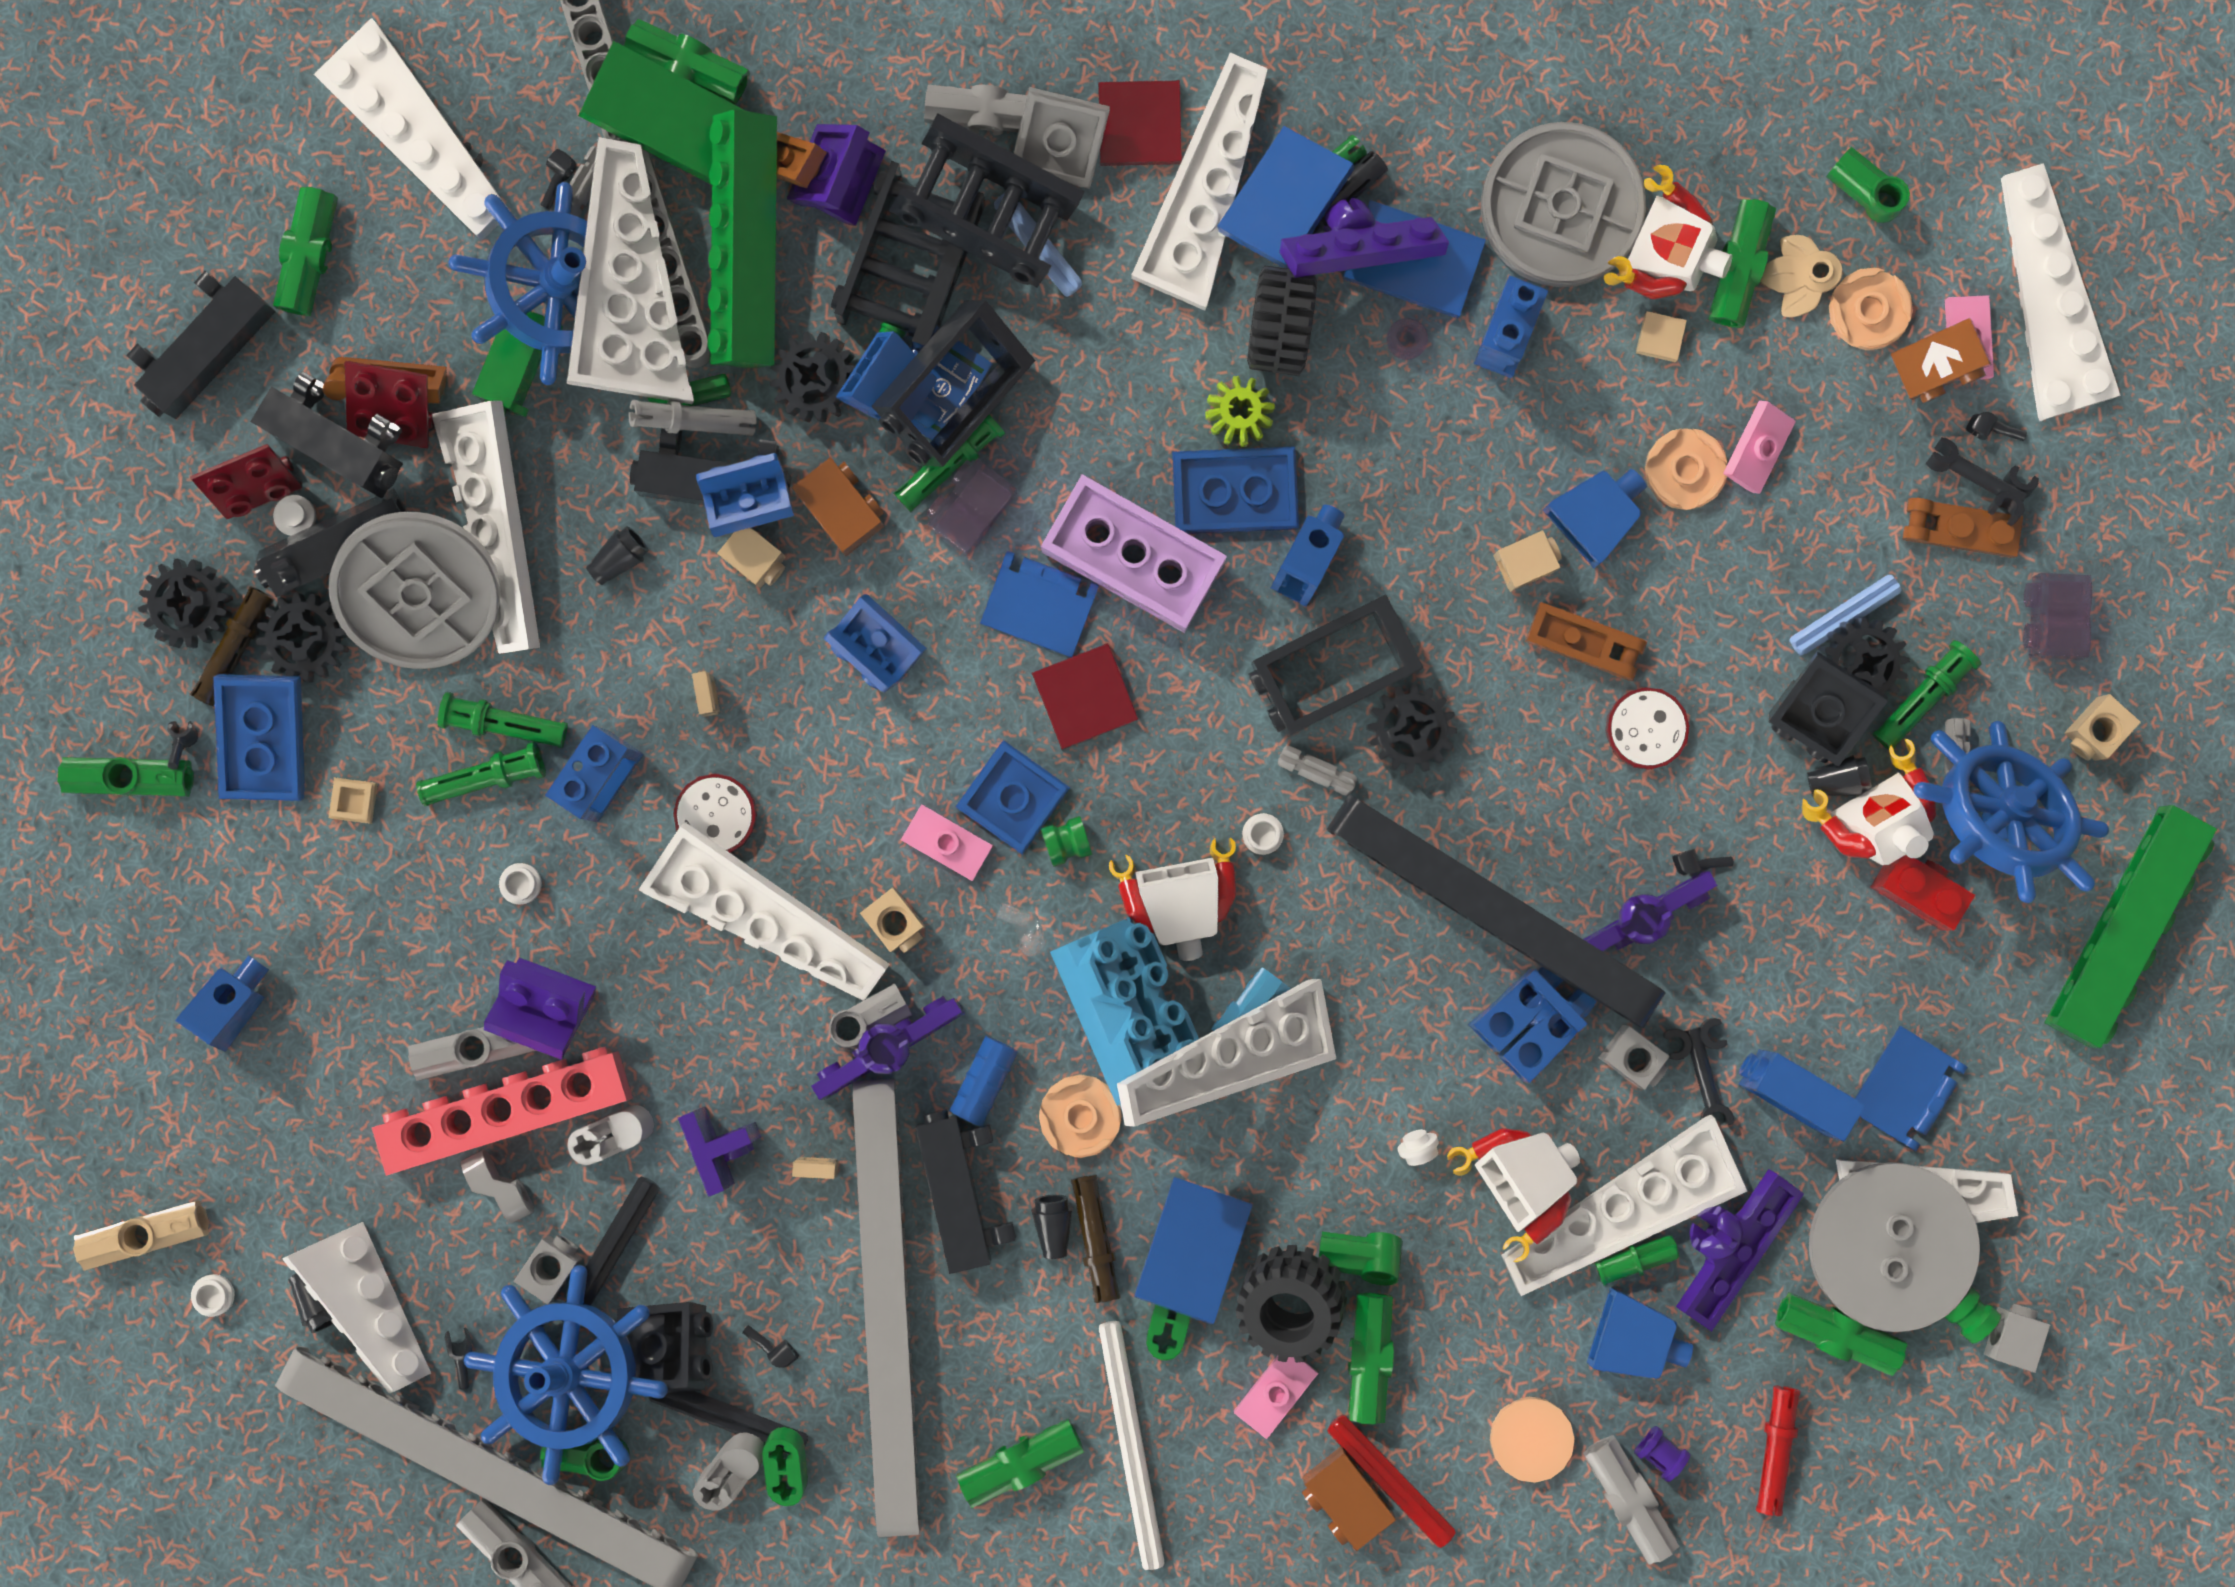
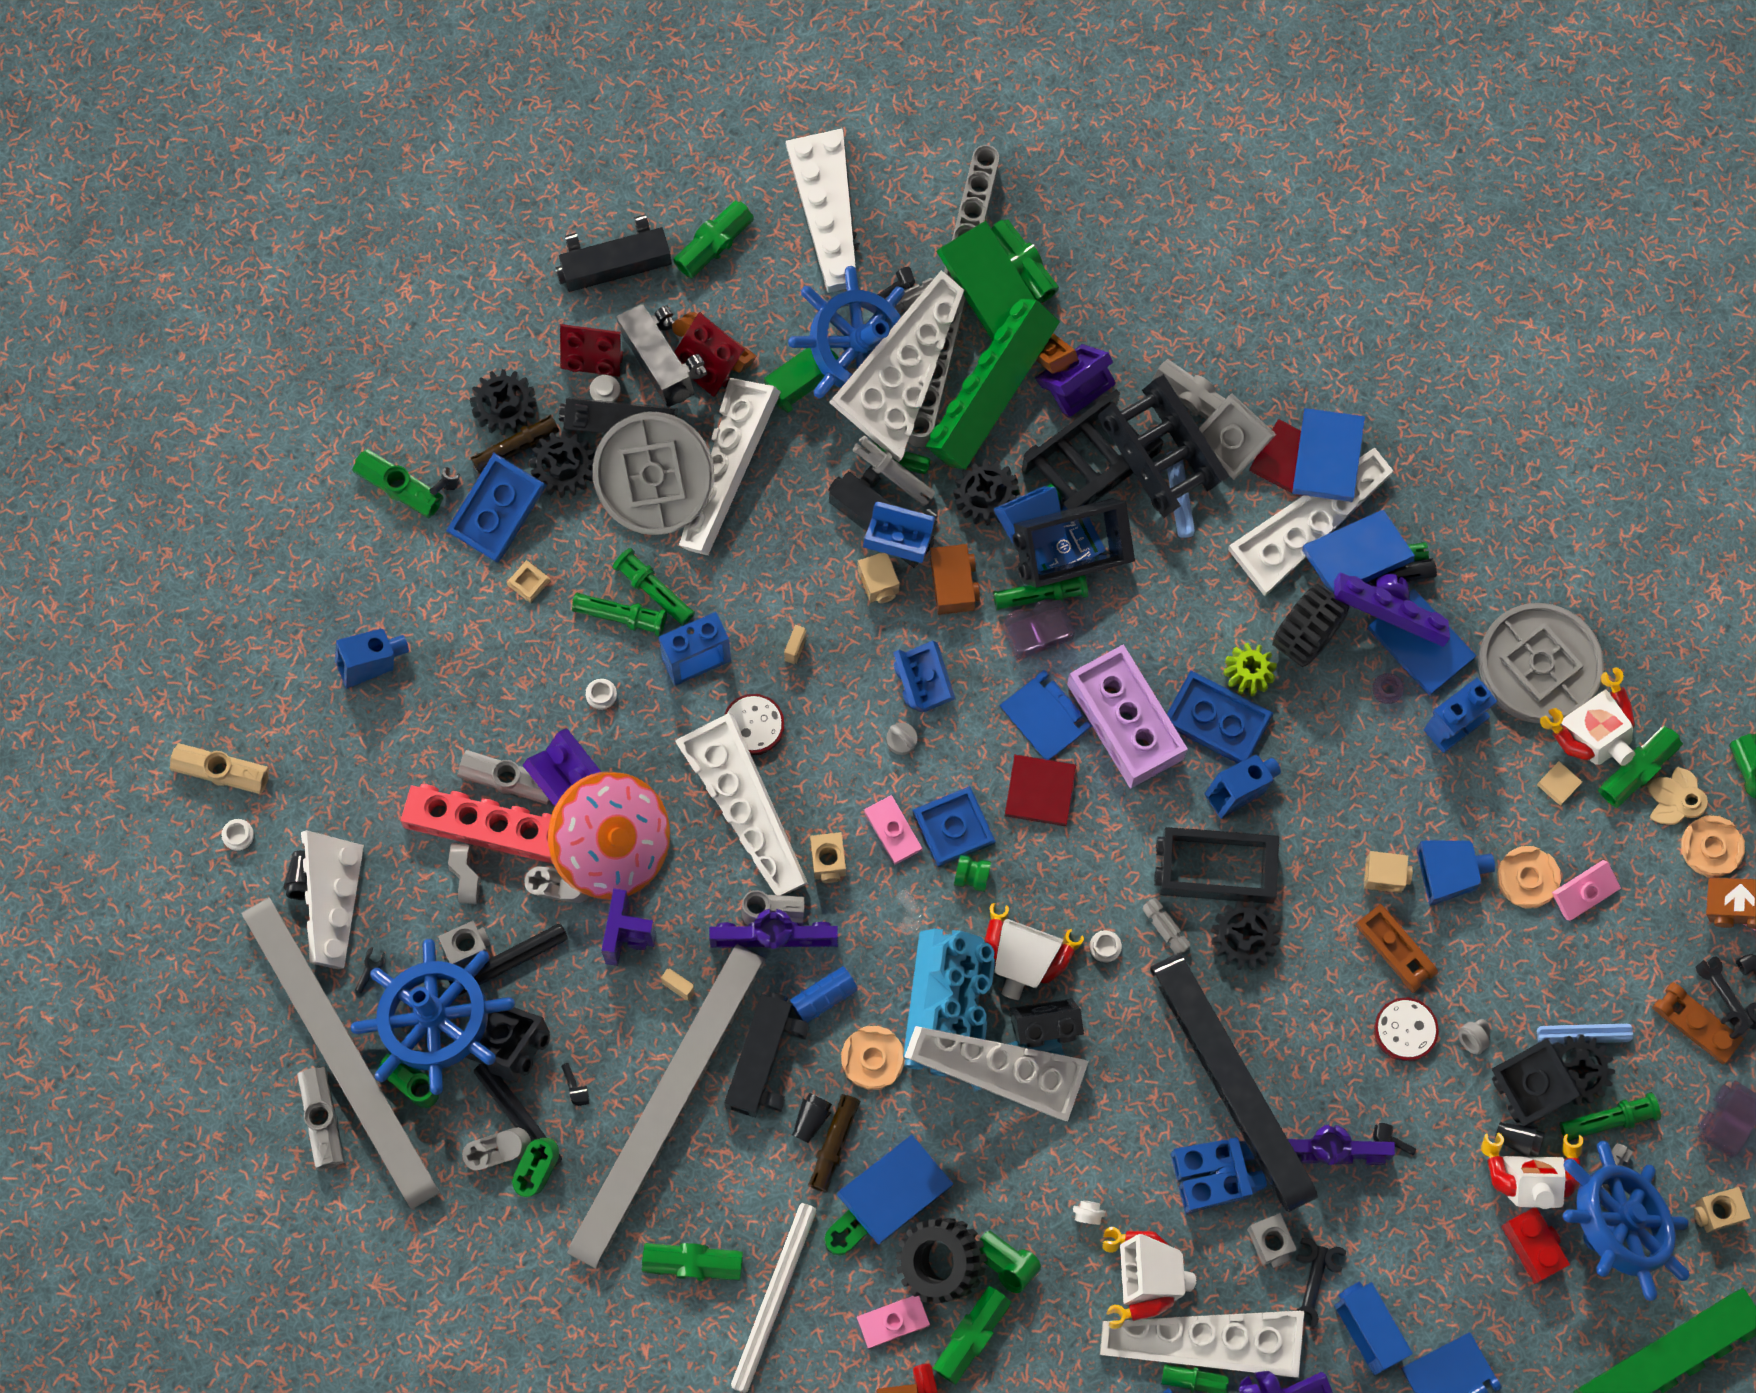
camera: 30 degrees right, 15 degrees down
(618, 555) = (792, 529): black cone -> none
(632, 1052) = (608, 834): none -> dish
(893, 730) = (901, 738): none -> light grey tile
(1183, 94) = (1328, 455): none -> blue tile
(1250, 966) = (1046, 1022): none -> black plate
(1728, 694) = (1475, 1036): none -> light grey tile

